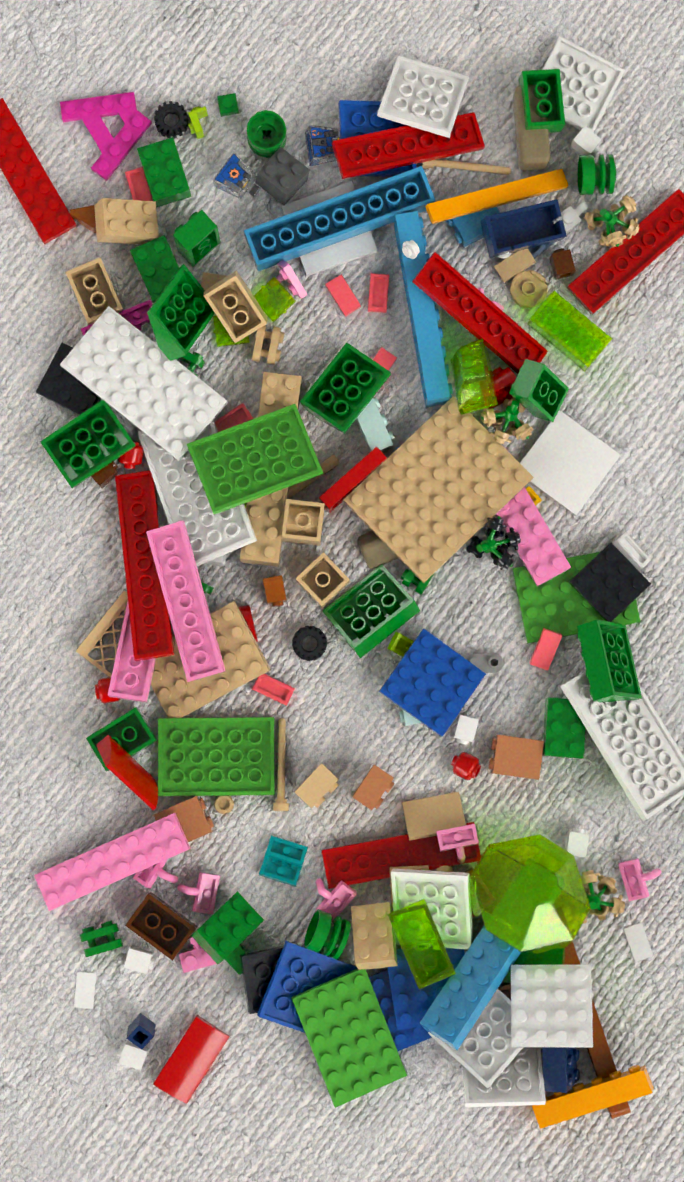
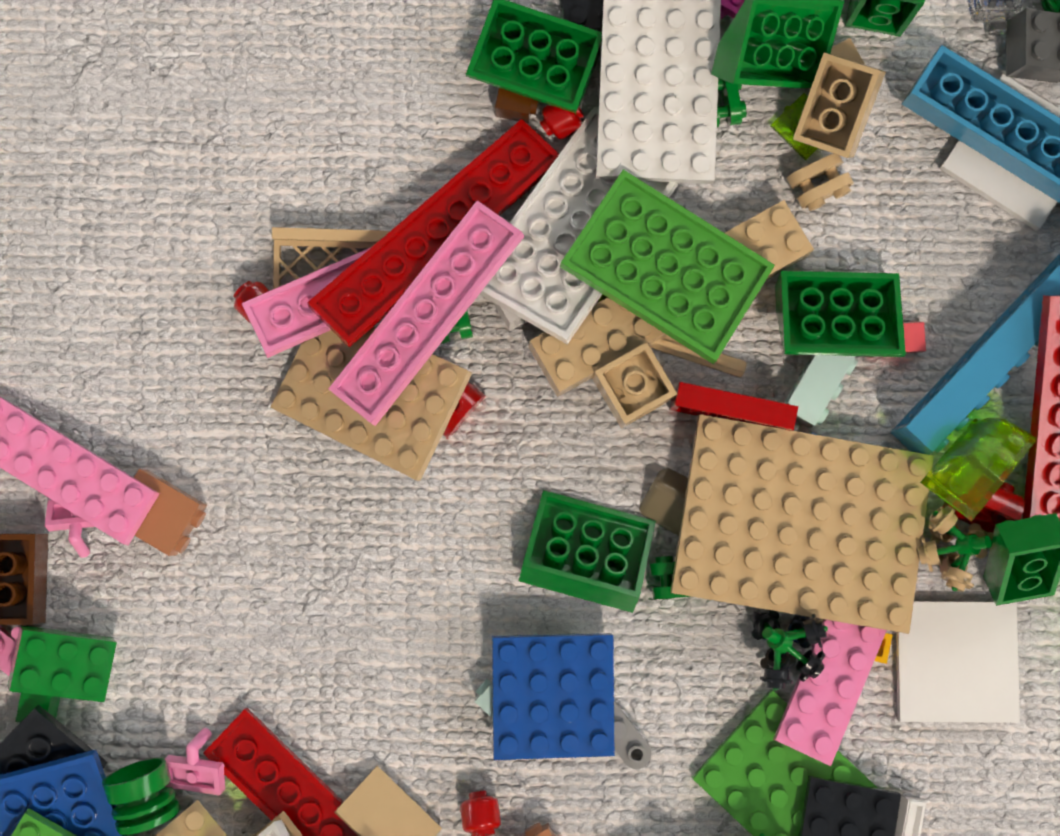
camera: 60 degrees right, 0 degrees up
(129, 731) = (205, 362): green brick -> none
(129, 771) = (164, 399): red slope -> none
(204, 894) = (89, 602): bright pink plate -> none
(216, 756) = (268, 493): bright green plate -> none
(224, 804) = (218, 545): tan tile -> none
(234, 417) = (702, 207): coral tile -> none
(273, 689) = (403, 502): coral tile -> none
(274, 299) = (882, 149): clear neon green piece -> none
(275, 591) = (523, 413): dark orange slope -> none
(281, 803) = (266, 615): tan piece -> none
(283, 861) = (199, 670): teal slope -> none
(288, 274) = (926, 142): bright pink plate -> none
(309, 631) = (473, 498): black tyre -> none
(316, 786) = (315, 647): tan brick -> none
(322, 580) = (581, 463): tan brick -> none
(343, 295) = (951, 229): coral tile -> none
(373, 787) = (366, 718): nougat brick -> none
(378, 293) = (987, 269): coral tile -> none
(399, 644) = (572, 618): lime bracket -> none
(465, 729) = (525, 780): white brick -> none
(545, 649) = (702, 808): coral tile -> none

